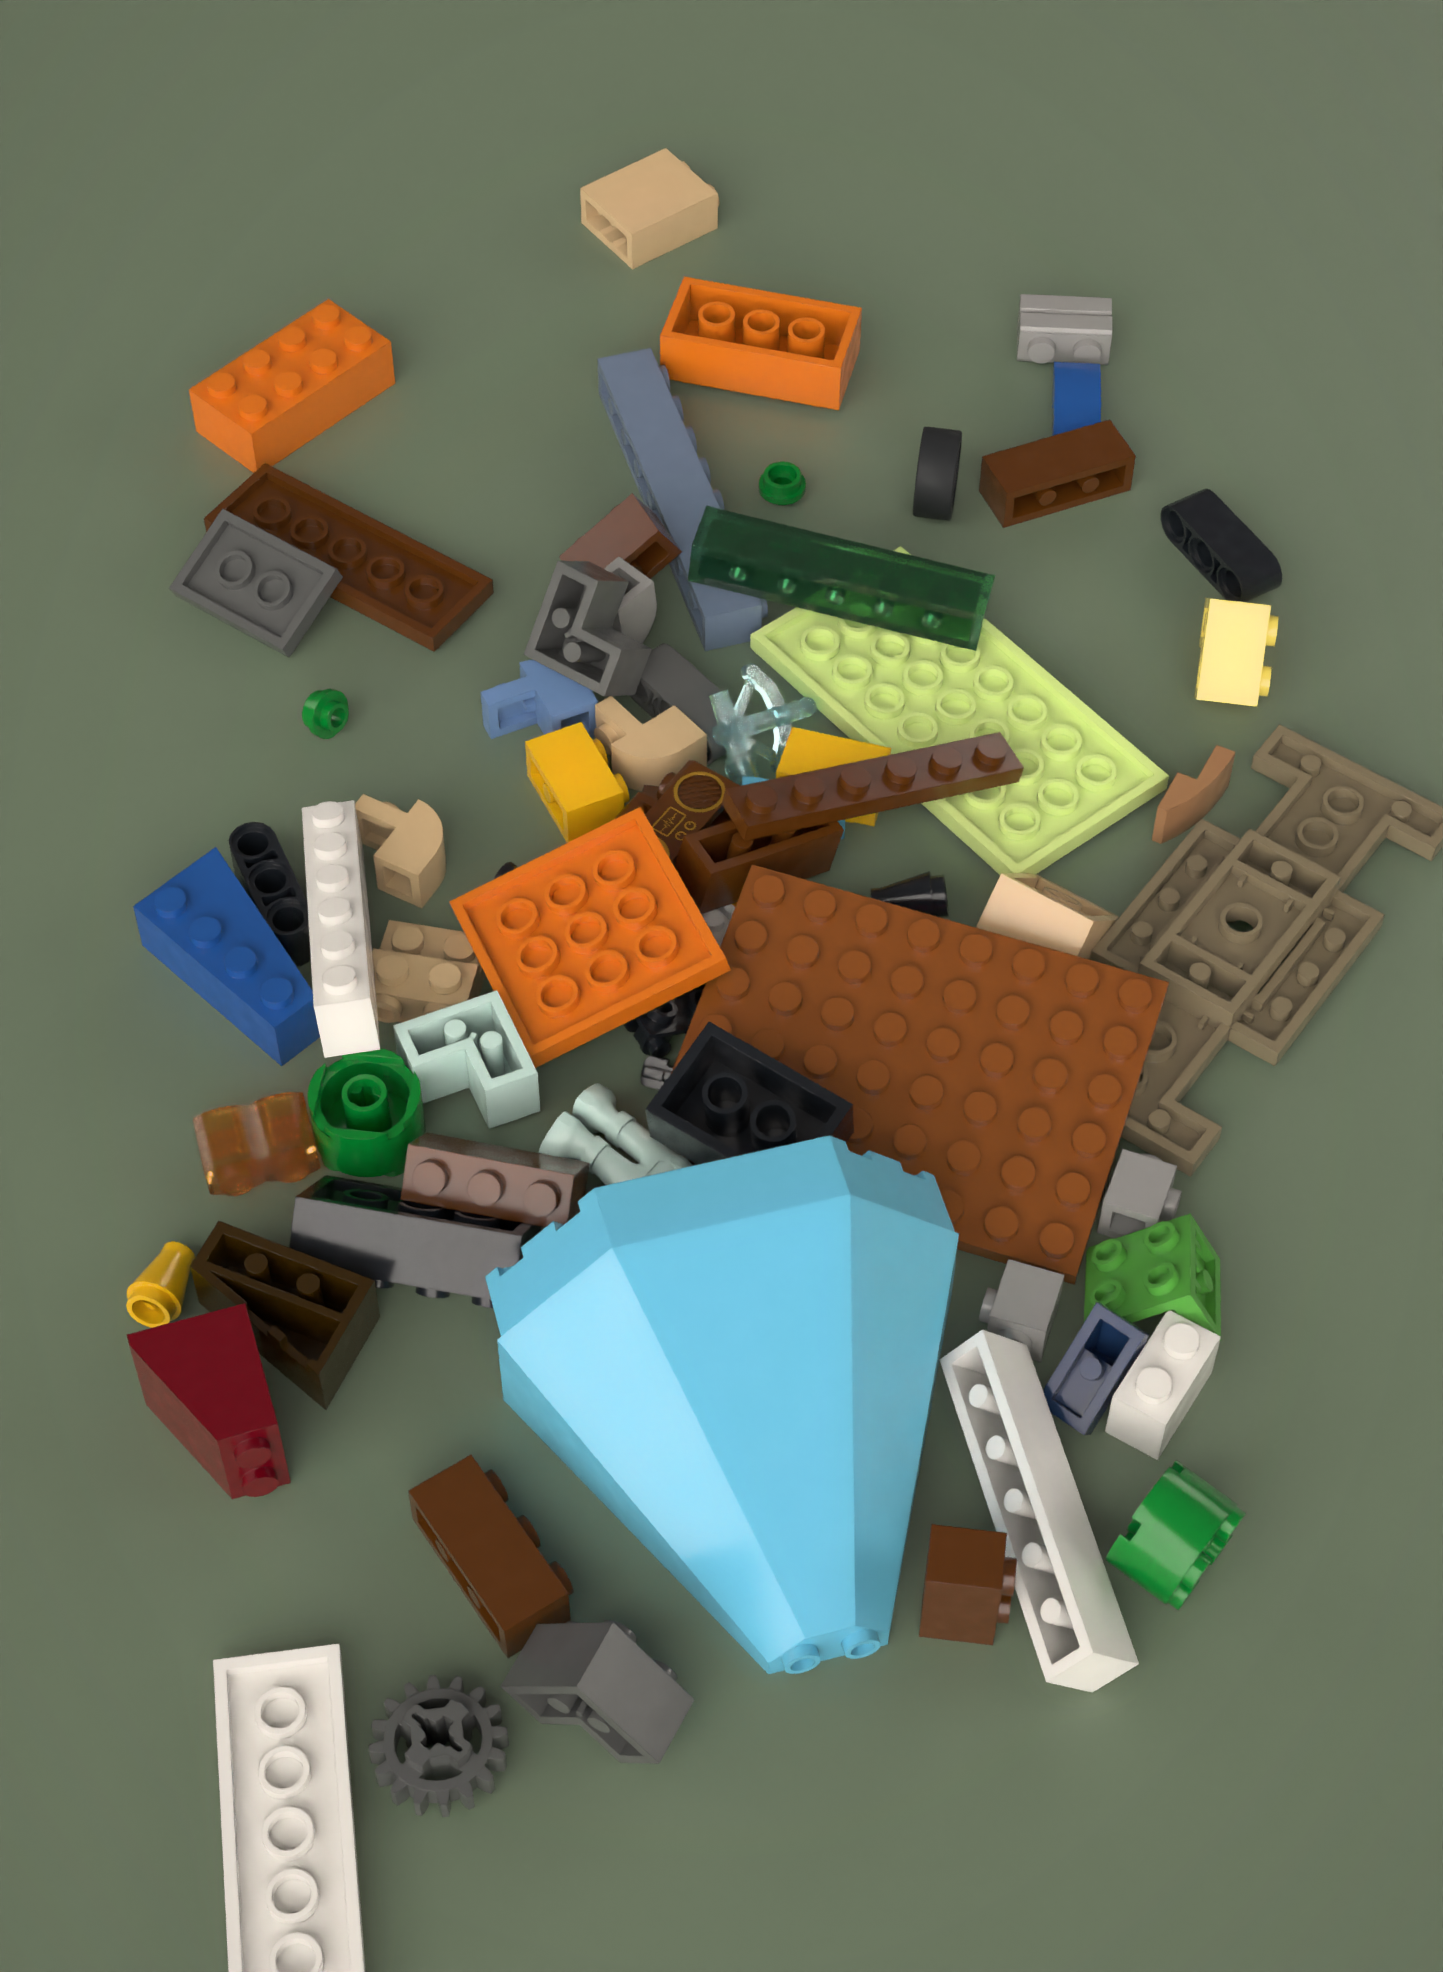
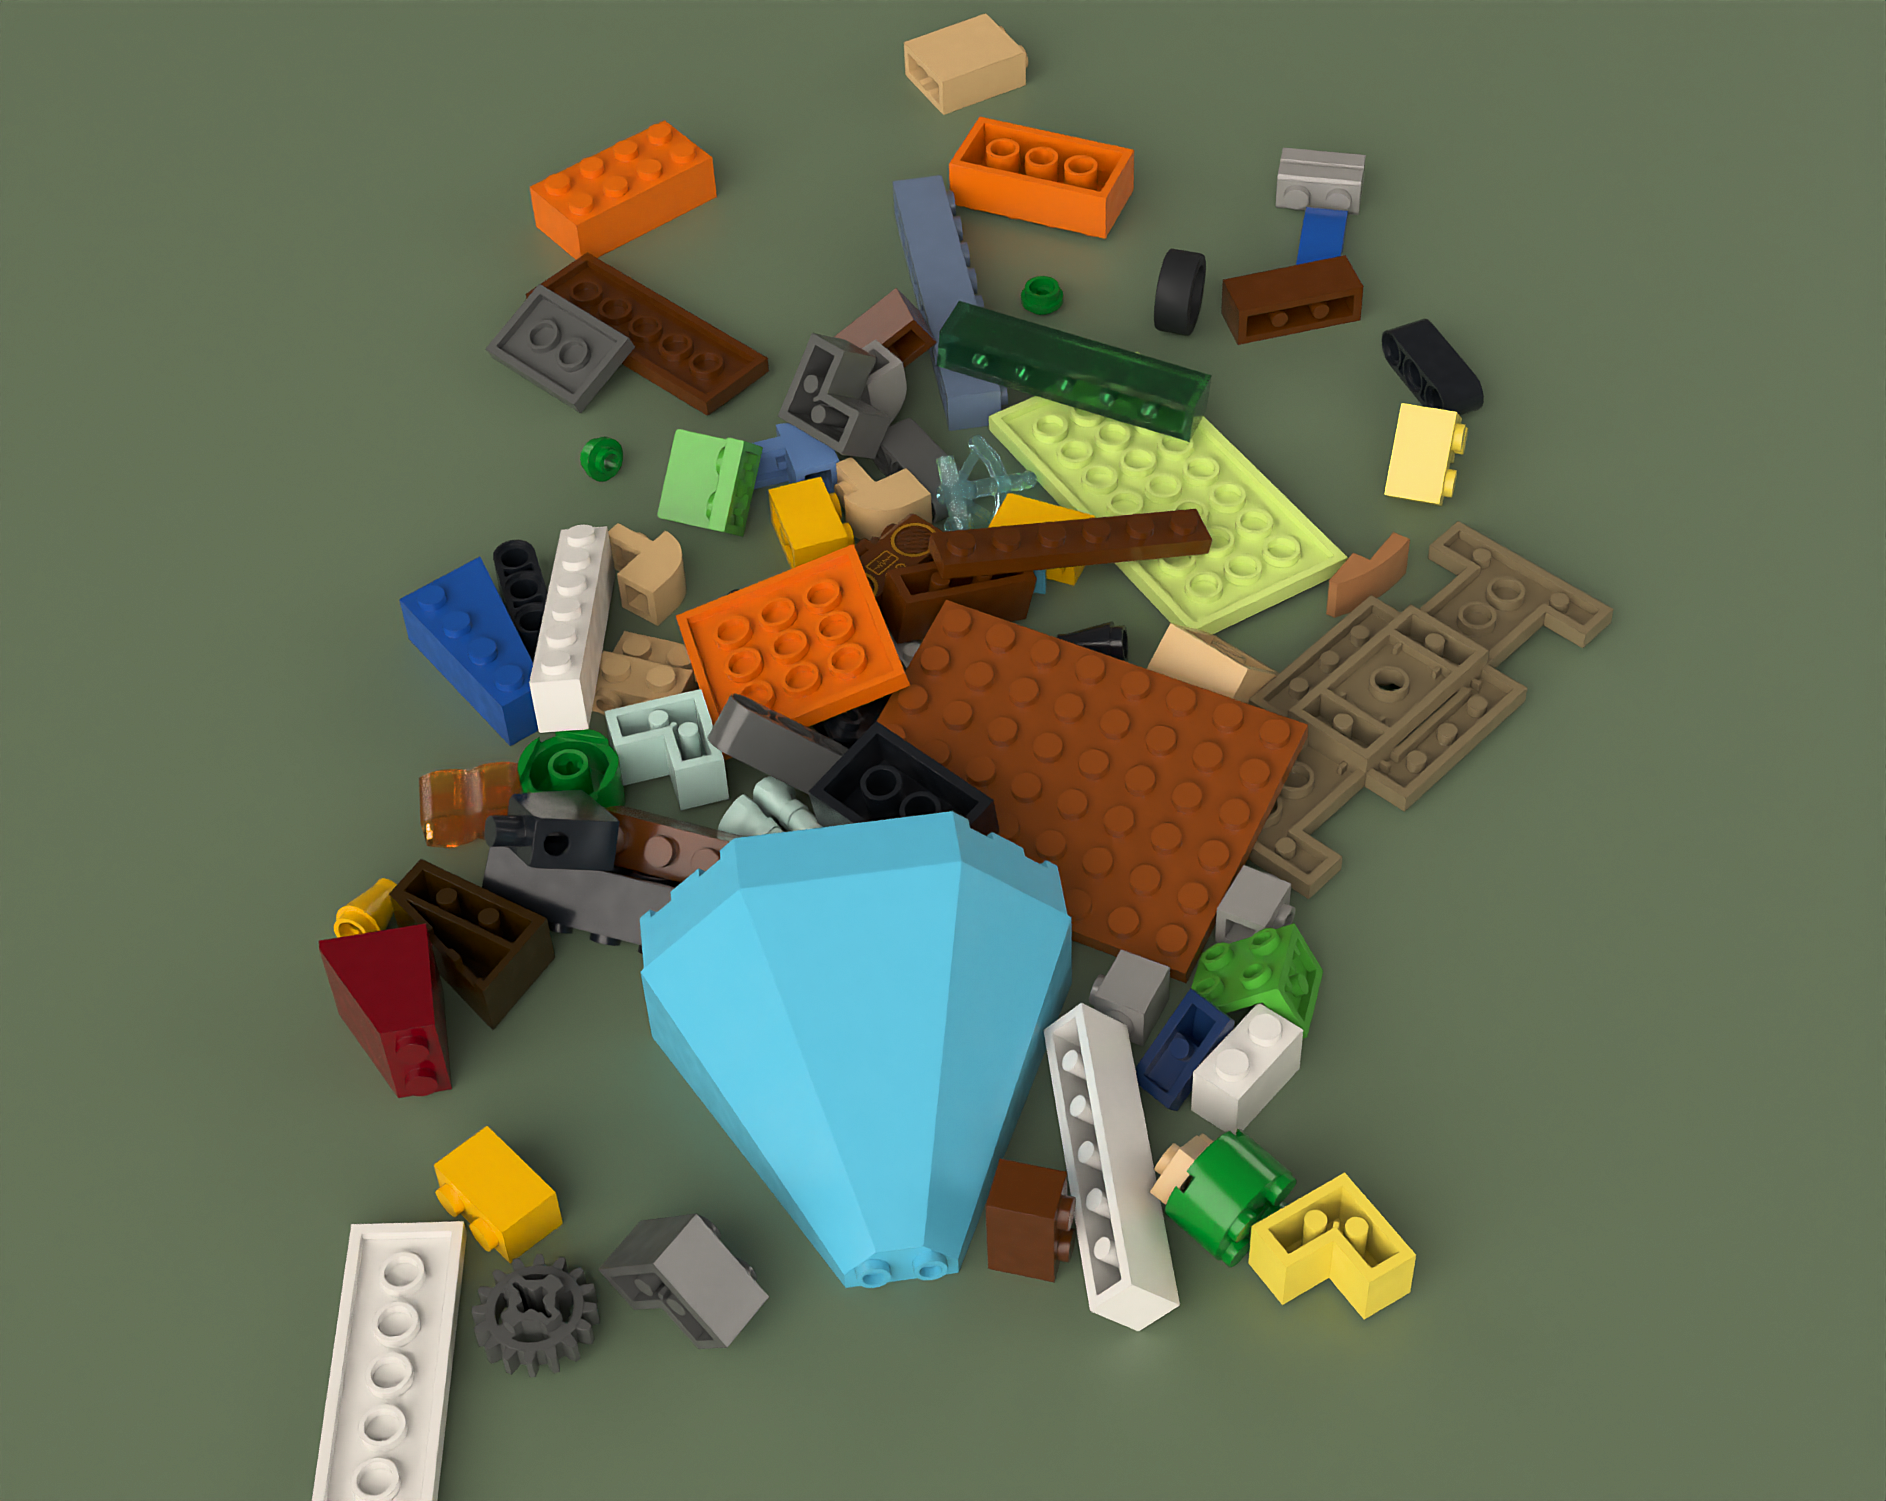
camera: 10 degrees right, 5 degrees down
(369, 1608) = (497, 1195): none -> yellow brick
(372, 1178) = (556, 831): none -> black torso
(455, 736) = (709, 482): none -> bracket
(490, 1553) = (611, 1156): reddish brown brick -> none
(597, 1052) = (774, 743): none -> dark grey beam
(1116, 1506) = (1174, 1165): none -> tan plate
(1296, 1571) = (1334, 1237): none -> light yellow brick

